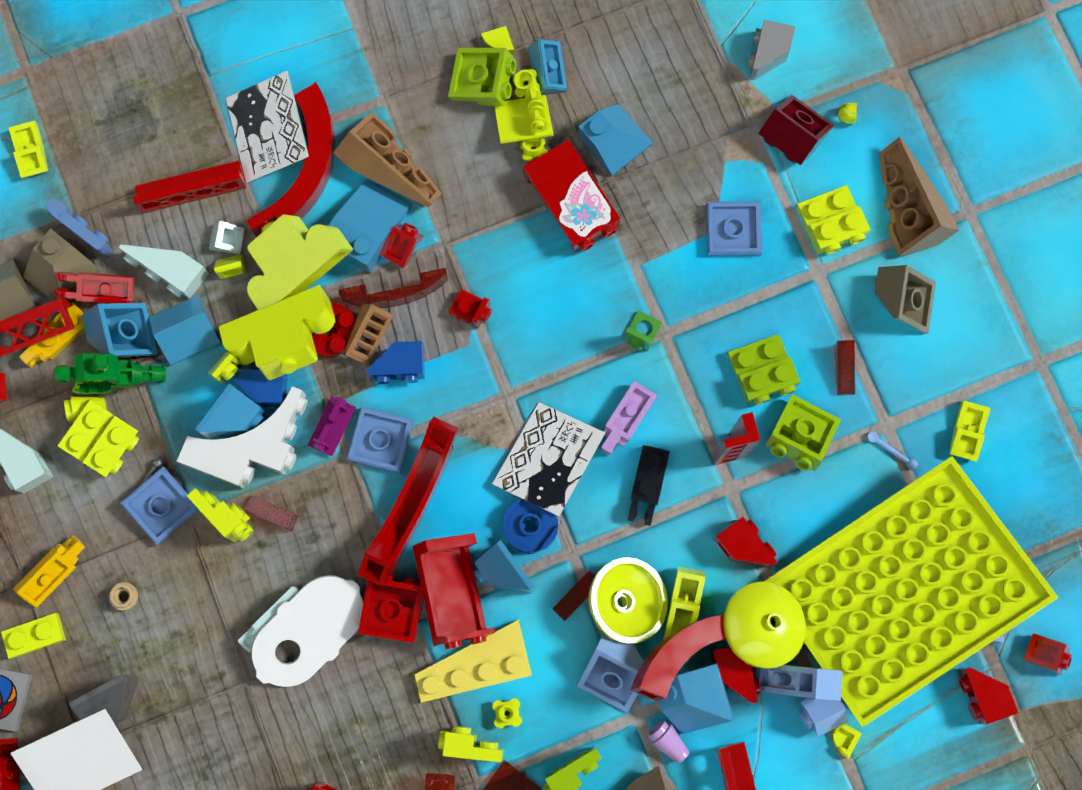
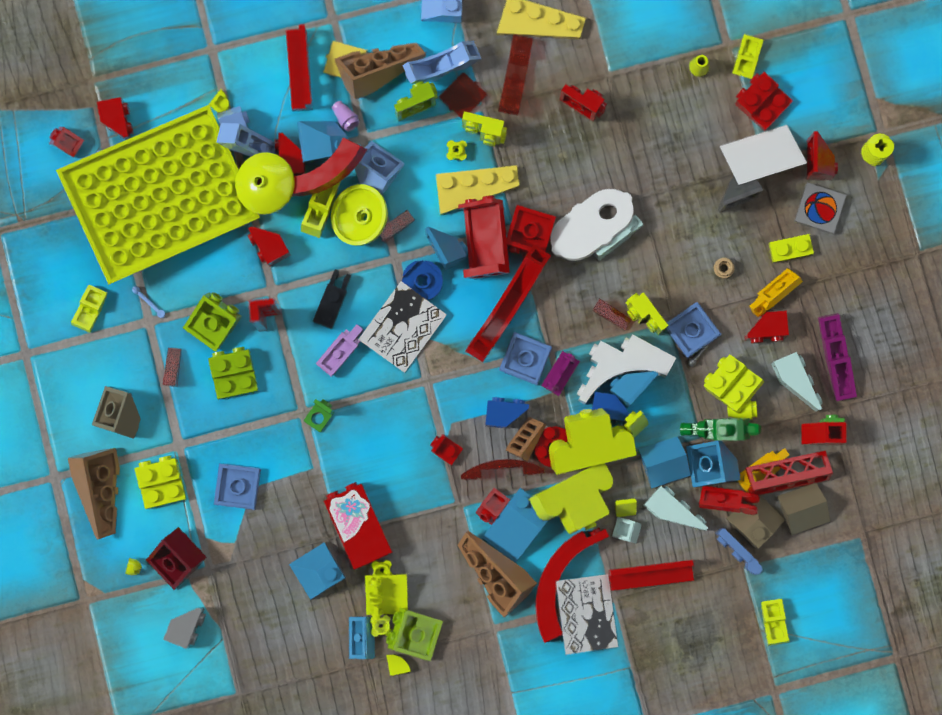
camera: 175 degrees left, 5 degrees up
(56, 523) = (770, 326): none -> red slope

